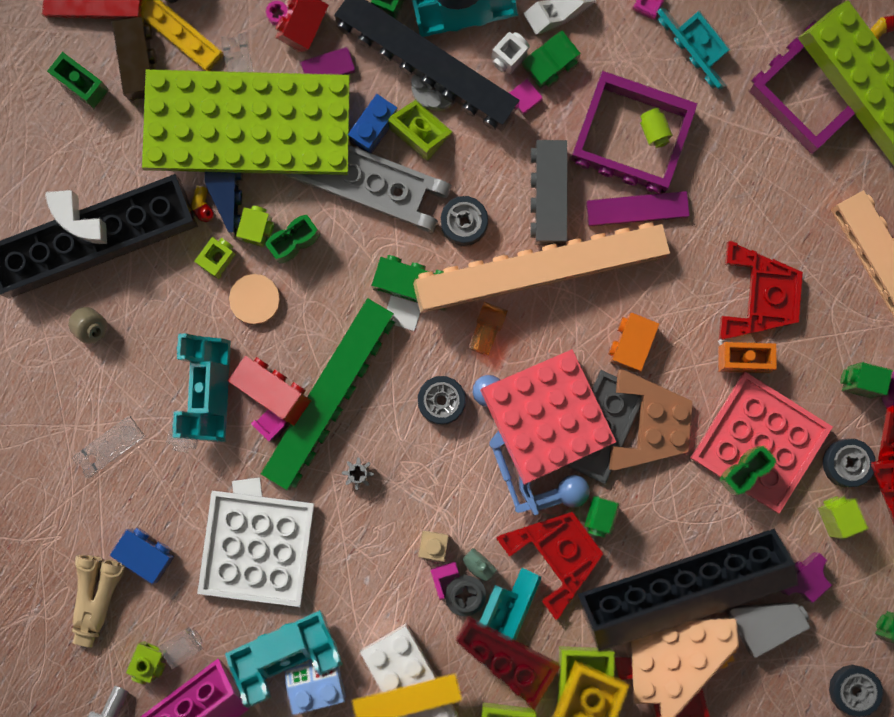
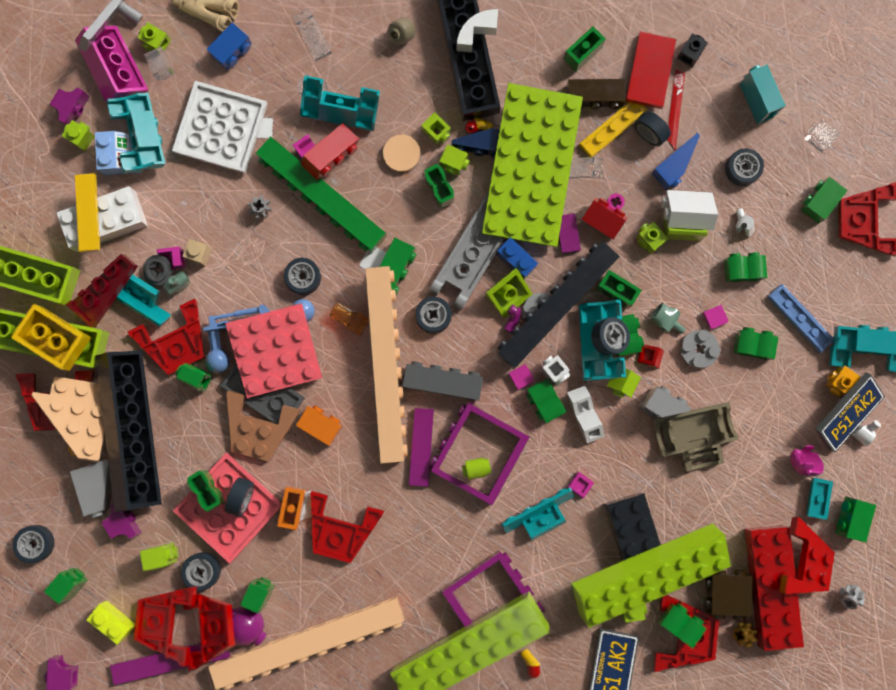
camera: 95 degrees right, 0 degrees up
(446, 116) = (514, 319): none -> magenta arm
(748, 424) = (239, 497): none -> black wheel

